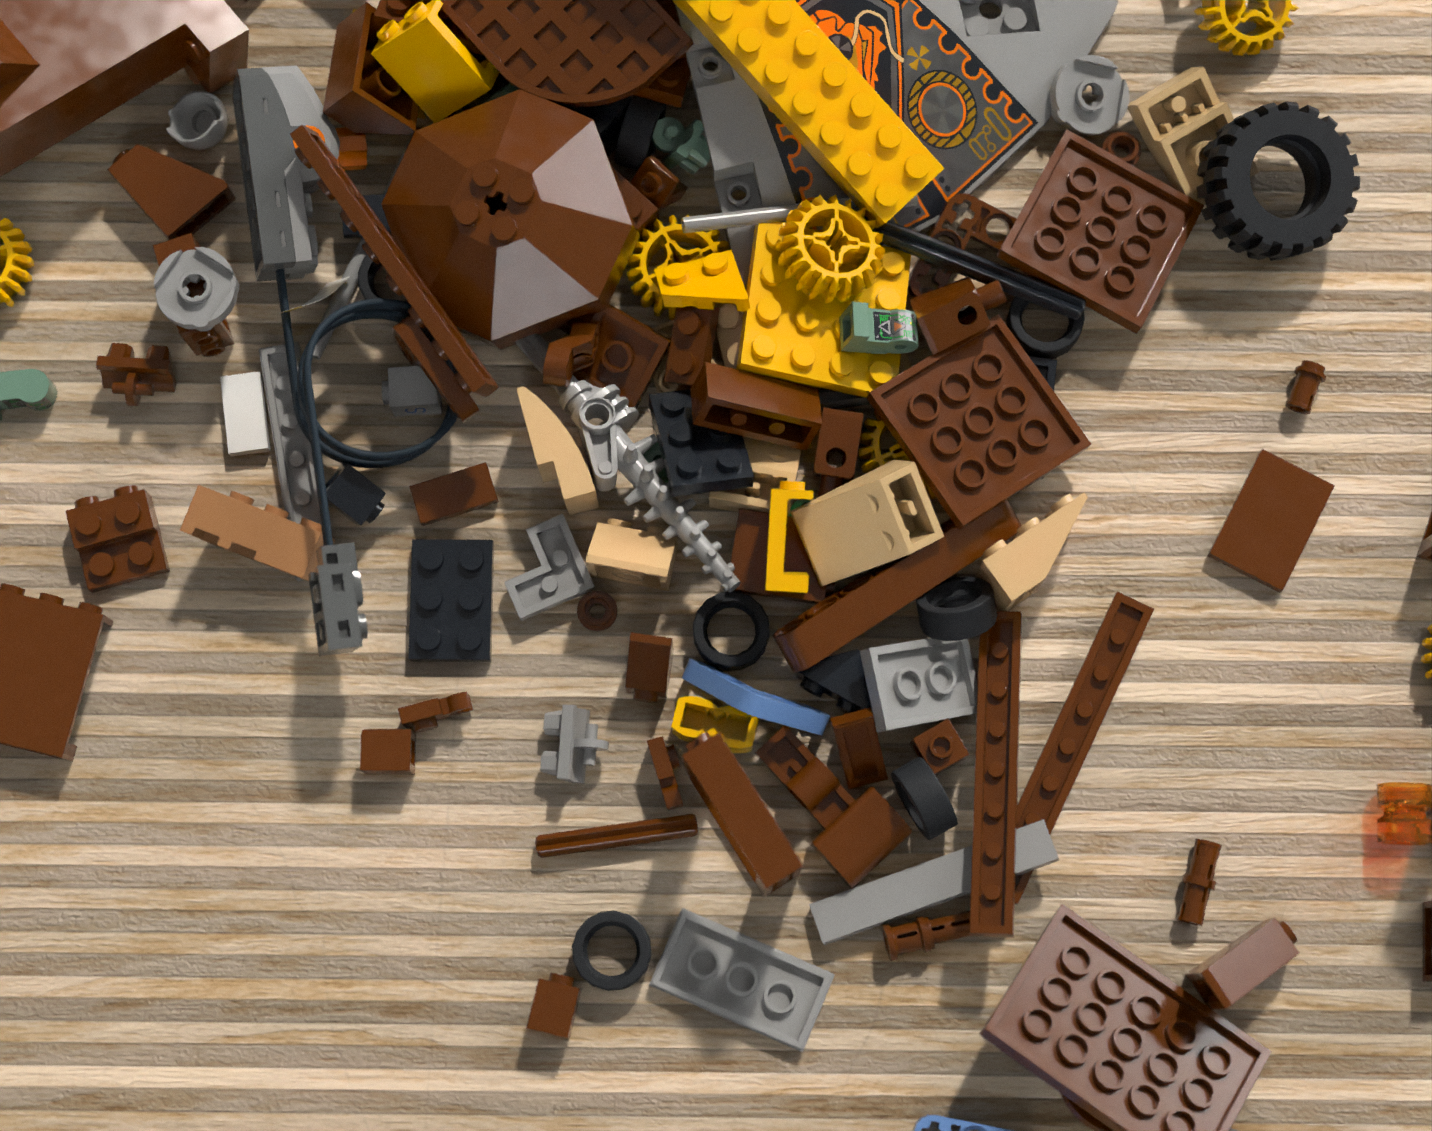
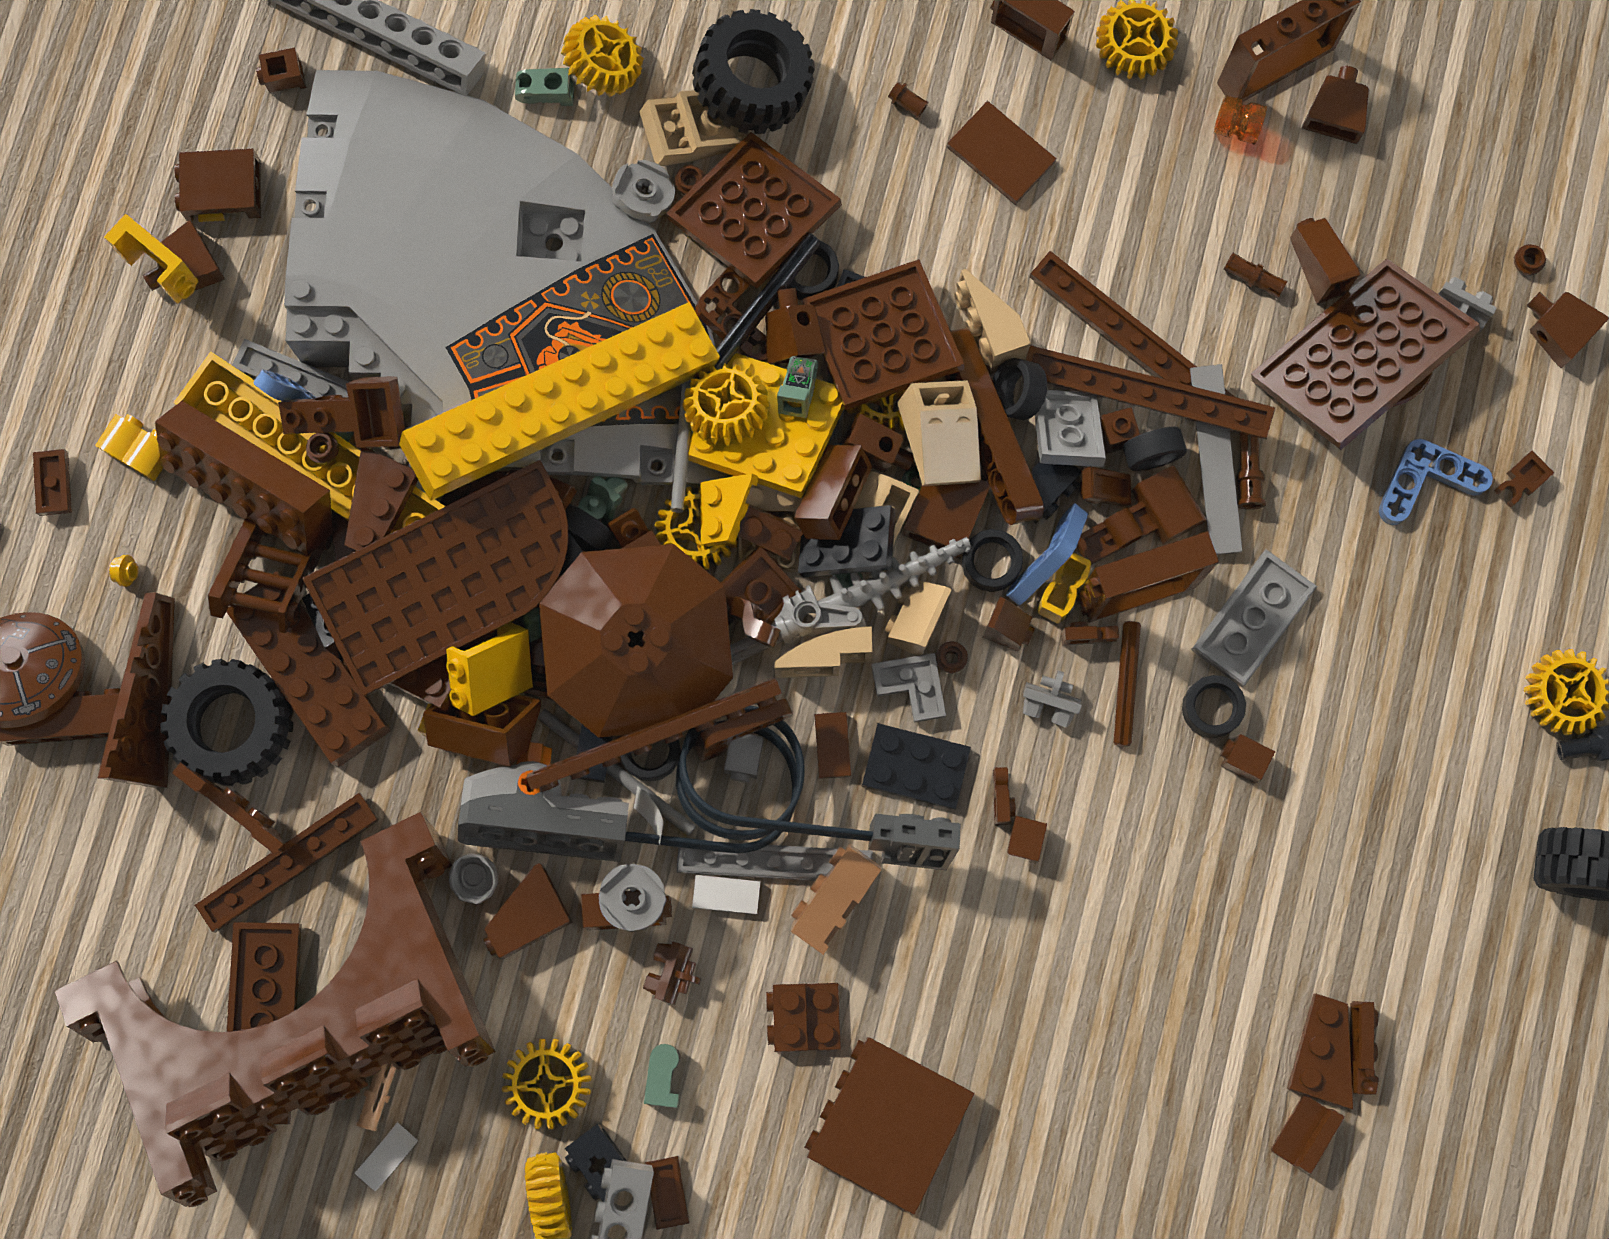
camera: 80 degrees left, 0 degrees up
(354, 495) = (821, 812): black brick -> none
(776, 577) = (942, 498): yellow panel -> none

